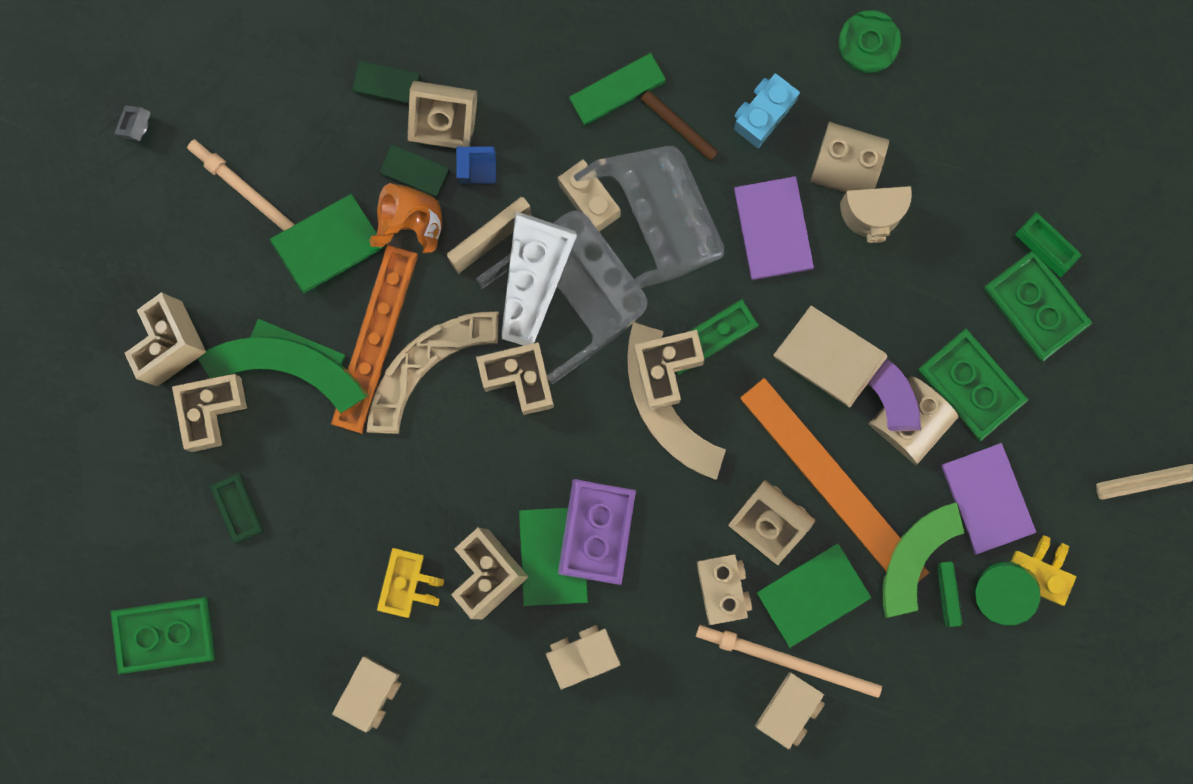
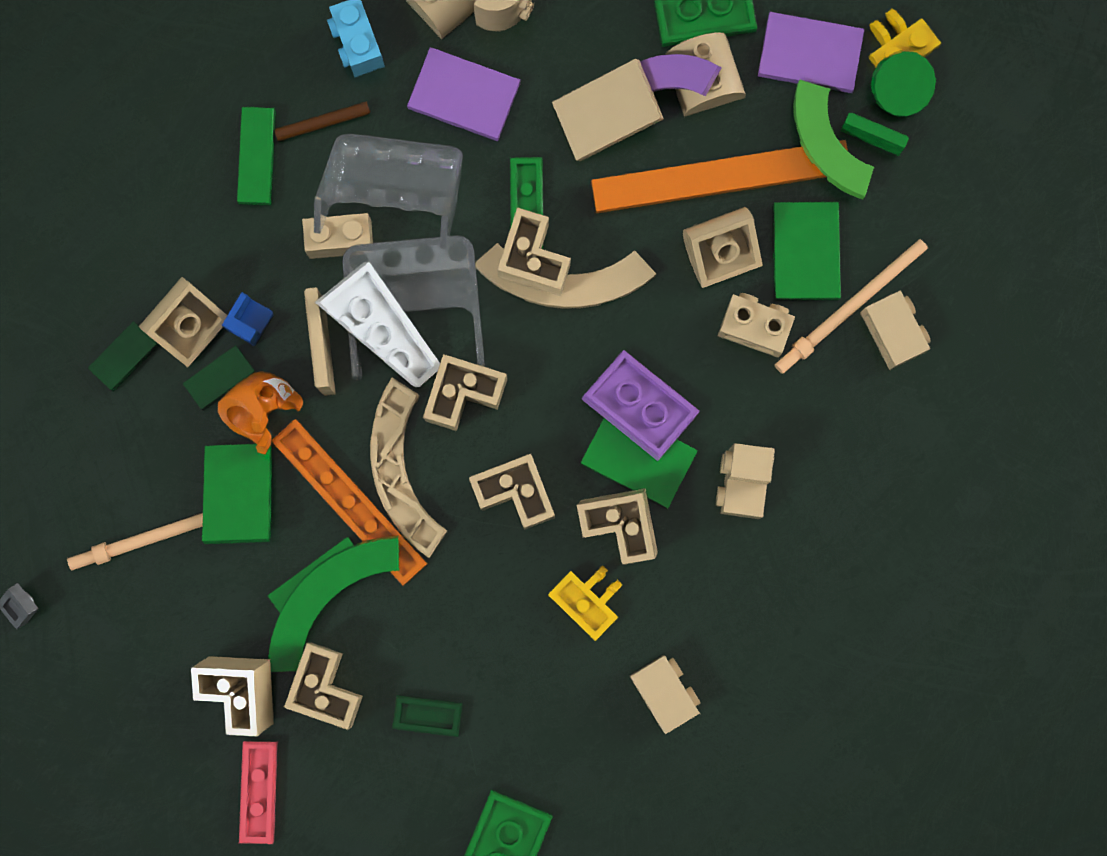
camera: 65 degrees left, 0 degrees up
(95, 407) = (258, 792): none -> coral tile
(470, 469) = (515, 481): none -> tan brick

